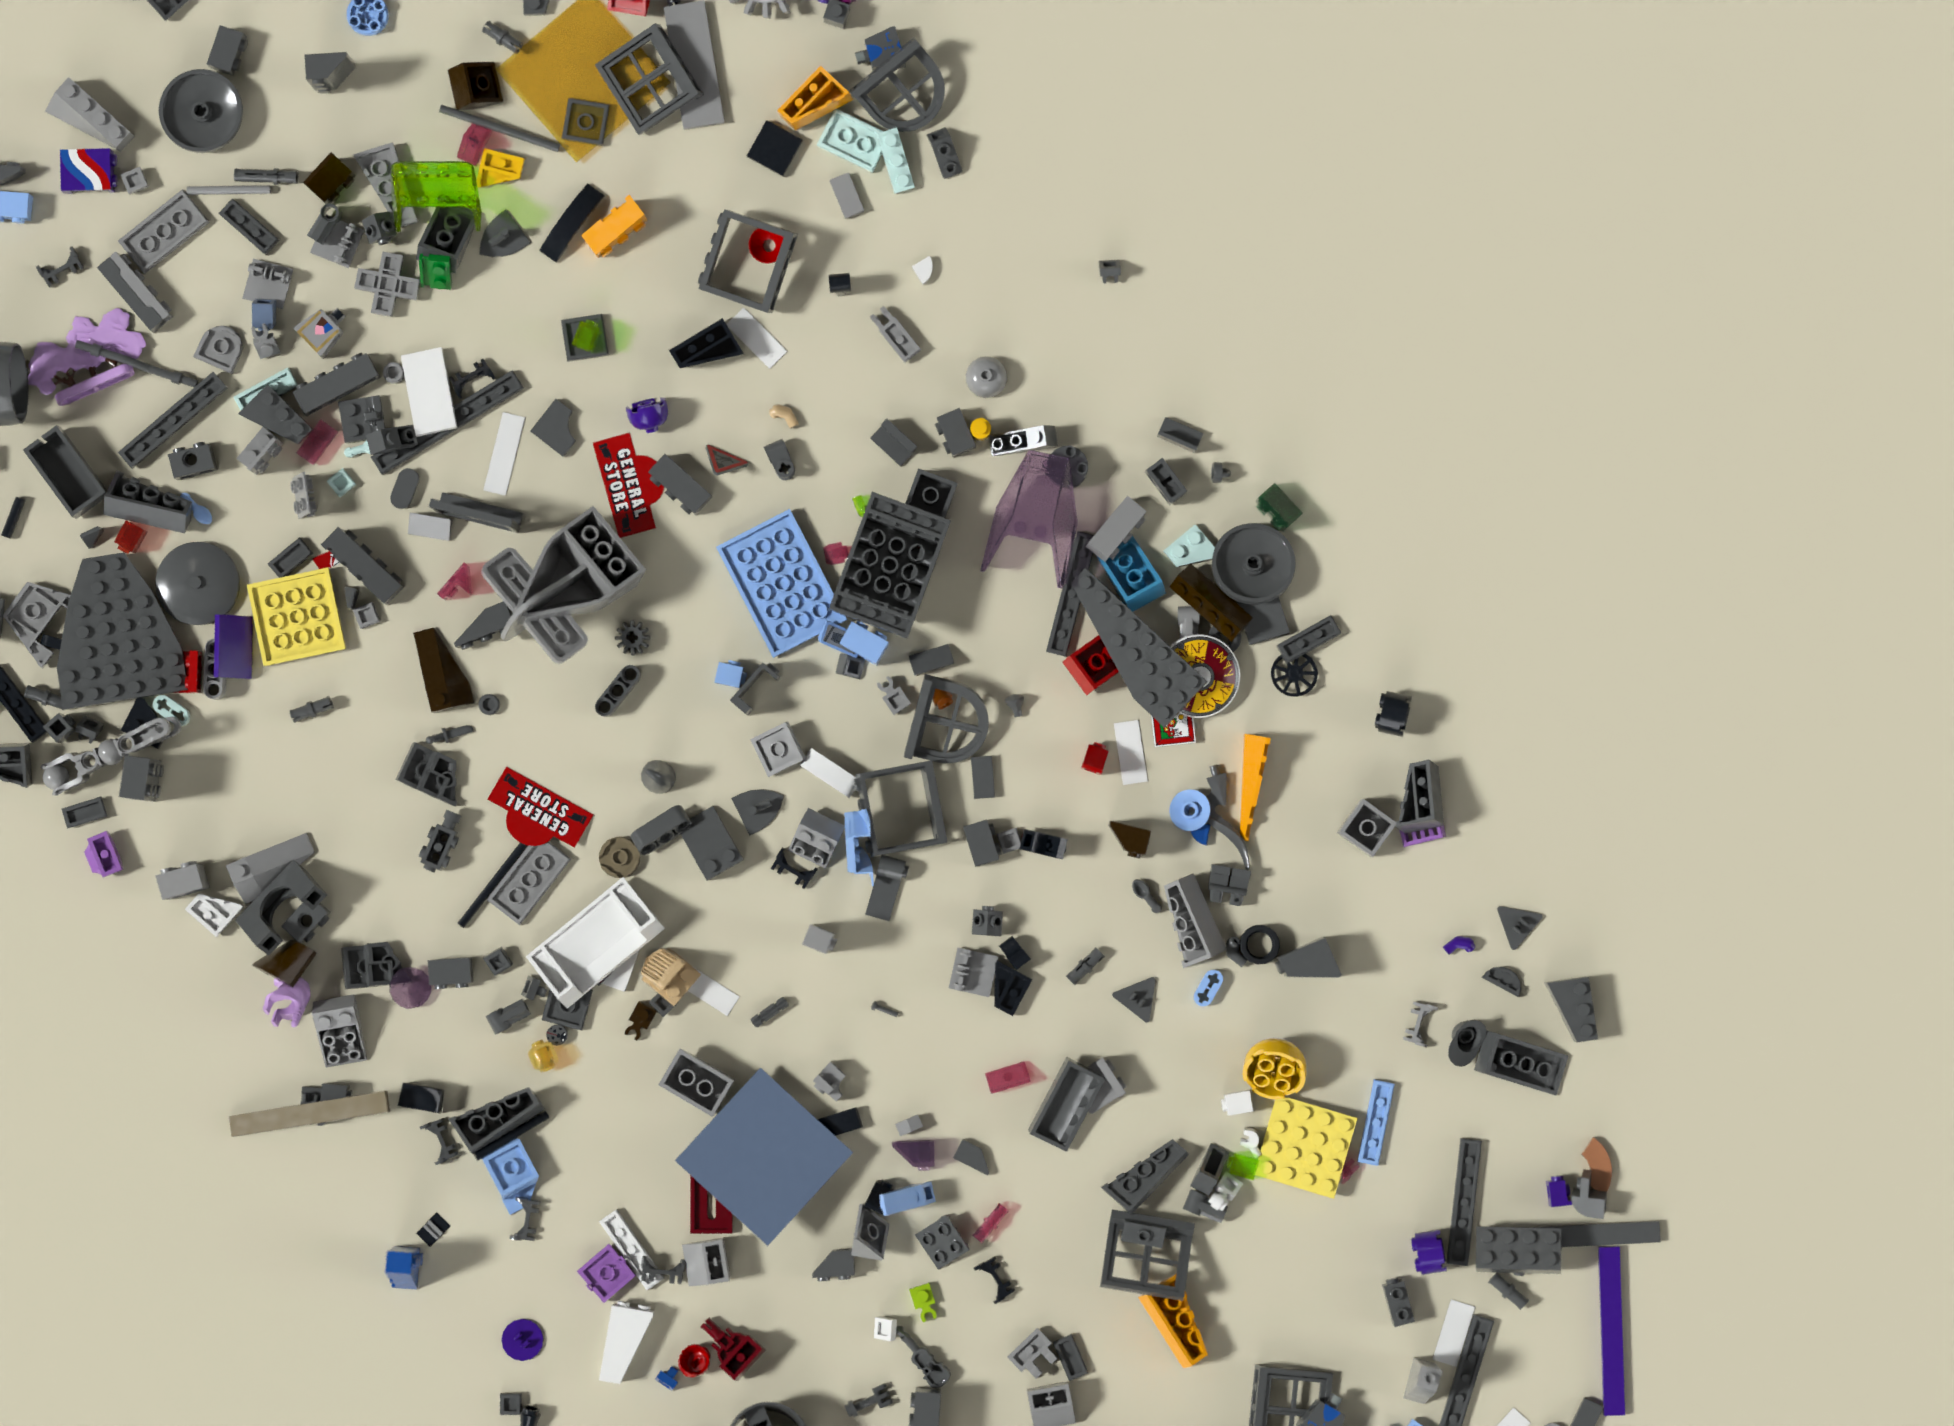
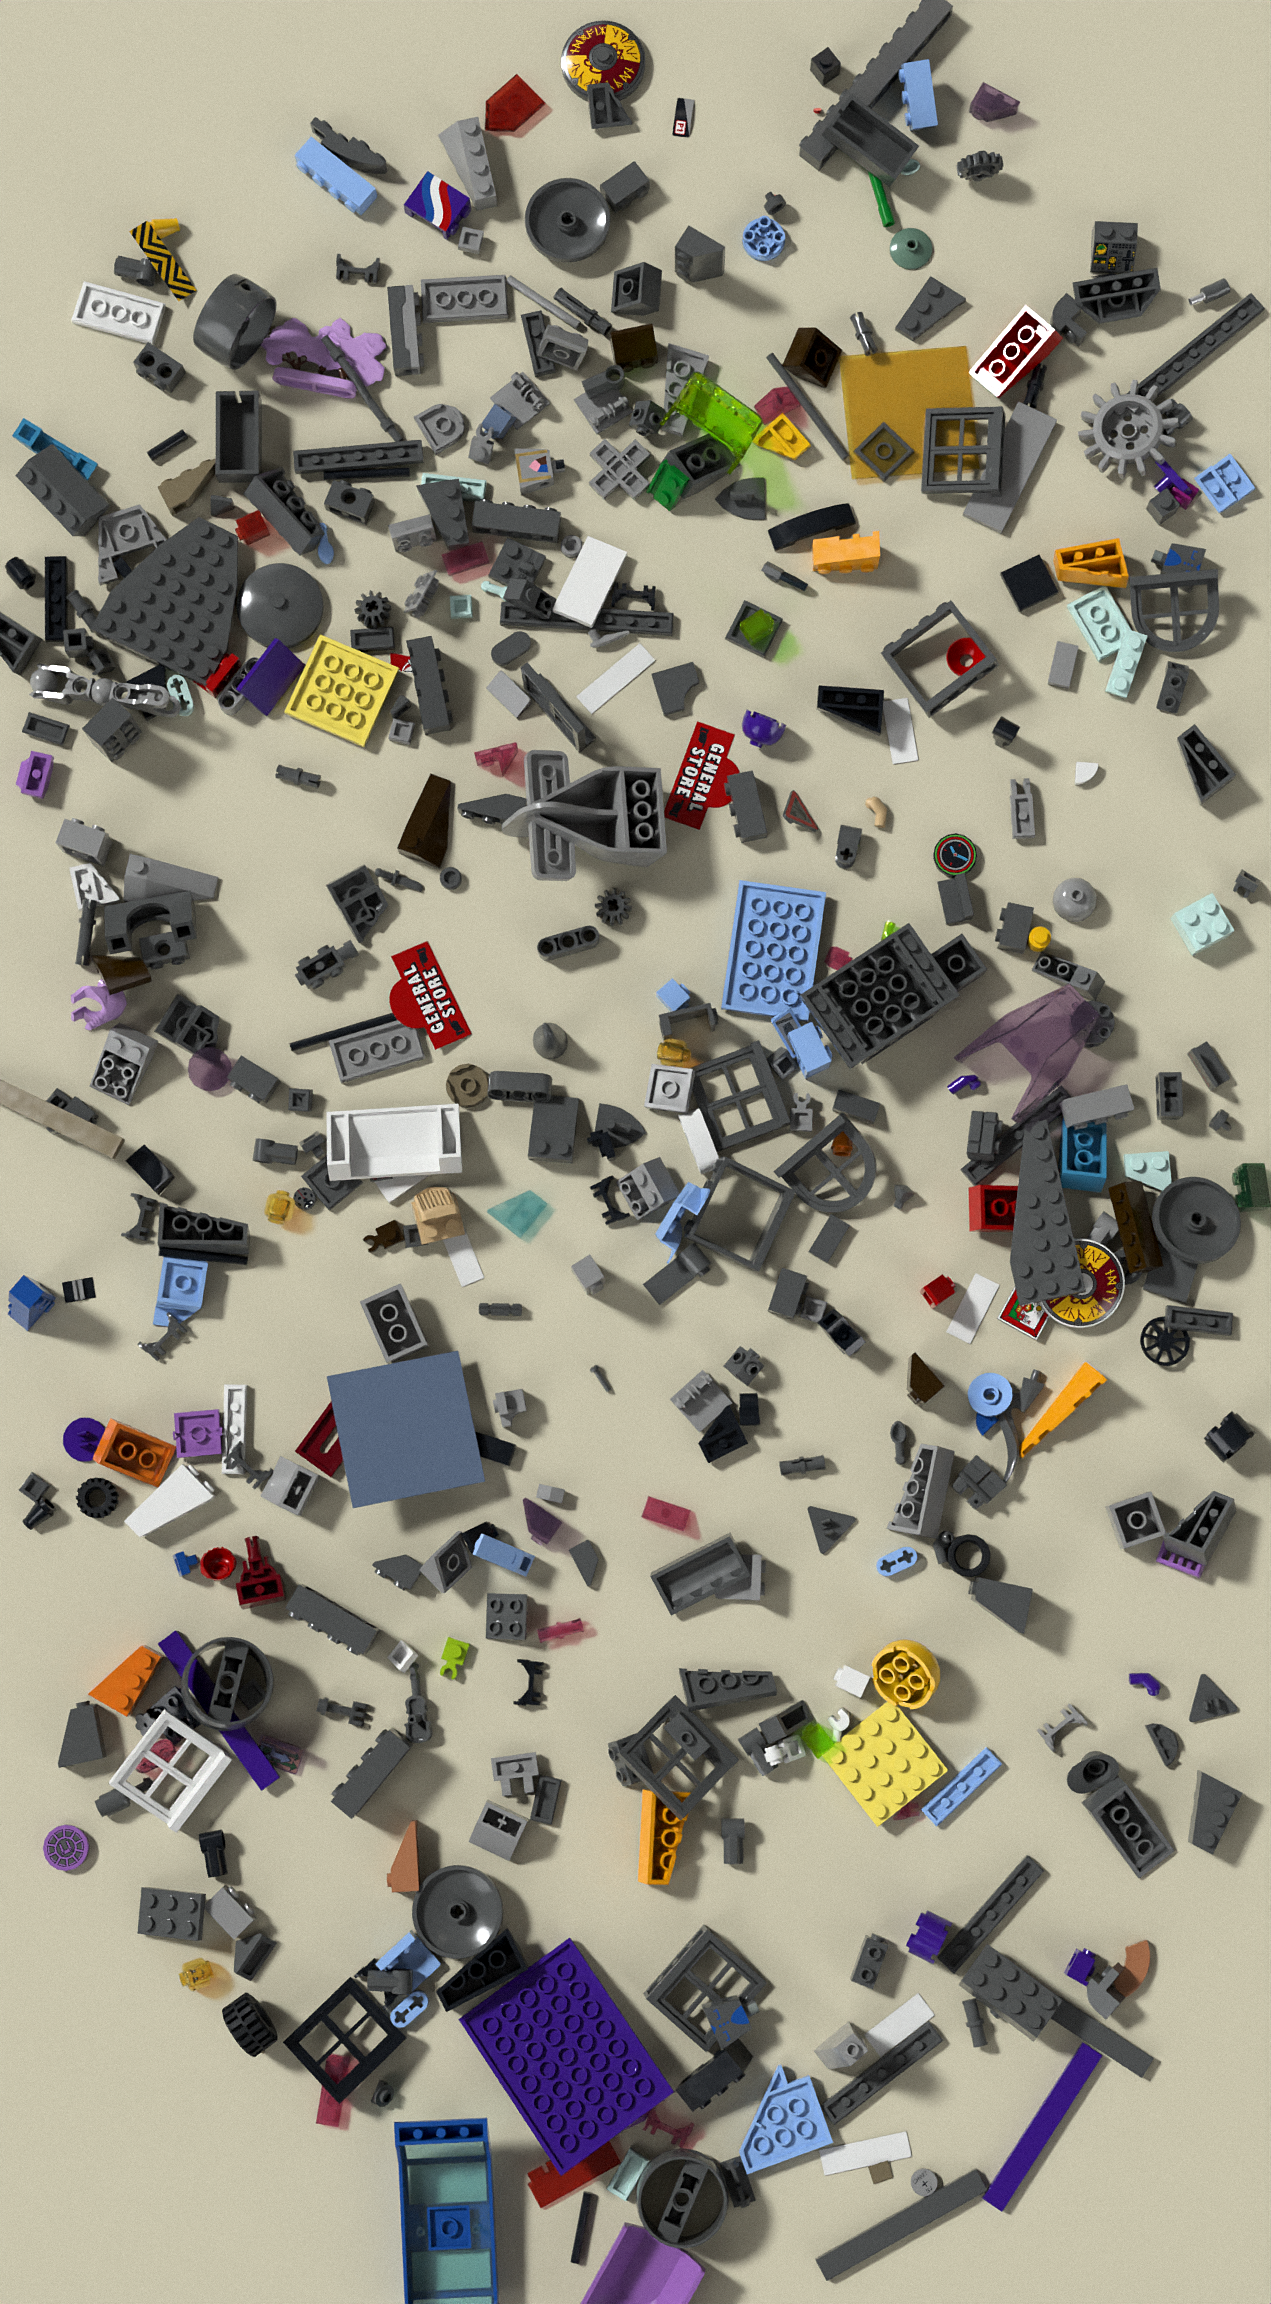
camera: 40 degrees right, 5 degrees down
(54, 544) = (184, 490): none -> dark tan slope
(87, 46) = (511, 106): none -> clear red tile
(189, 428) = (362, 474): none -> black piece
(235, 950) = (86, 931): none -> dark grey pin
(272, 217) = (562, 347): none -> light grey slope
(279, 539) = (376, 615): none -> dark grey gear
(296, 128) = (636, 290): none -> dark grey slope
(473, 430) = (606, 639): none -> light grey bar
(555, 1386) = (83, 1497): none -> black tyre
(567, 1323) = (134, 1452): none -> orange slope
(571, 280) = (776, 573): none -> piece
(730, 927) = (519, 1212): none -> clear light blue wing
(761, 719) = (673, 1053): none -> clear yellow head
(761, 829) = (606, 1147): none -> black bracket
(812, 1340) = (332, 1619): none -> dark grey brick
(851, 693) = (766, 1086): none -> dark grey window
(869, 407) = (954, 855): none -> tile
(1005, 576) = (962, 1081): none -> dark purple arm
(1013, 200) = (1204, 764): none -> dark grey wedge
(1045, 614) = (983, 1136): none -> dark grey brick
(1098, 327) = (1202, 924): none -> light aqua brick
(1115, 1296) = (623, 1773): none -> dark grey bracket
(1230, 1282) = (733, 1834): none -> dark grey piece

